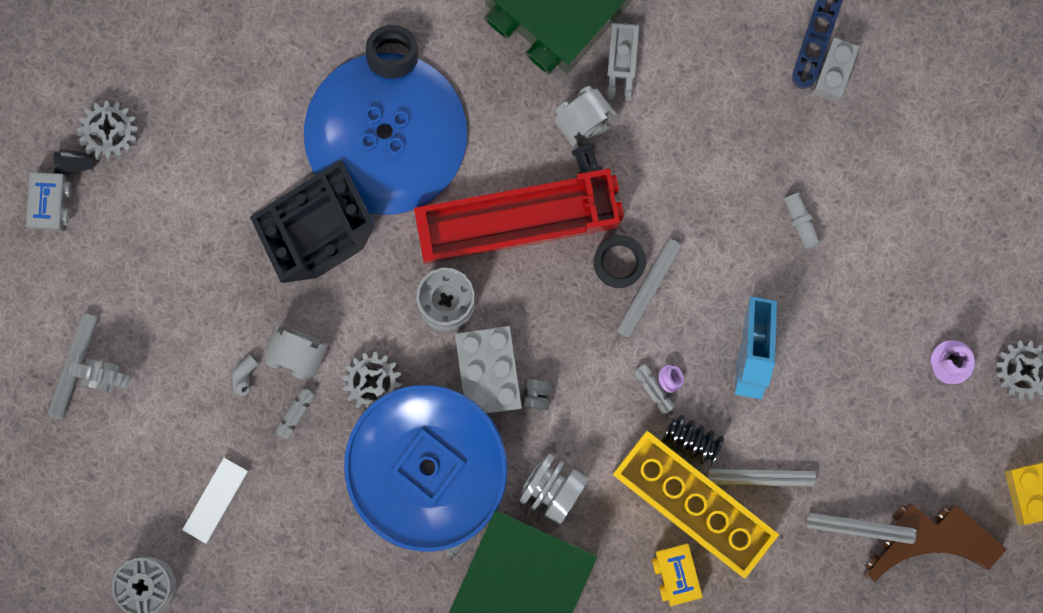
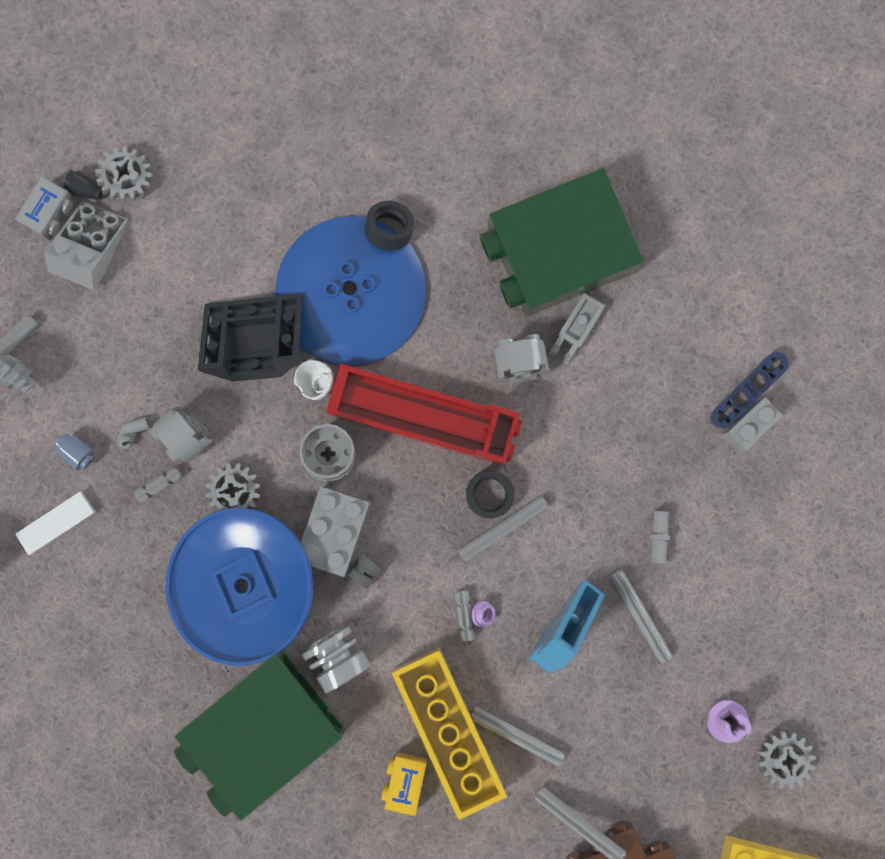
camera: 30 degrees right, 0 degrees up
(105, 217) = (85, 245): none -> light grey slope
(199, 422) = (74, 452): none -> sand blue brick
(395, 236) = (314, 379): none -> white hair
(588, 151) = (510, 389): black bush -> none
(693, 439) = (476, 676): black piece -> none
(821, 304) = (641, 616): none -> light grey axle

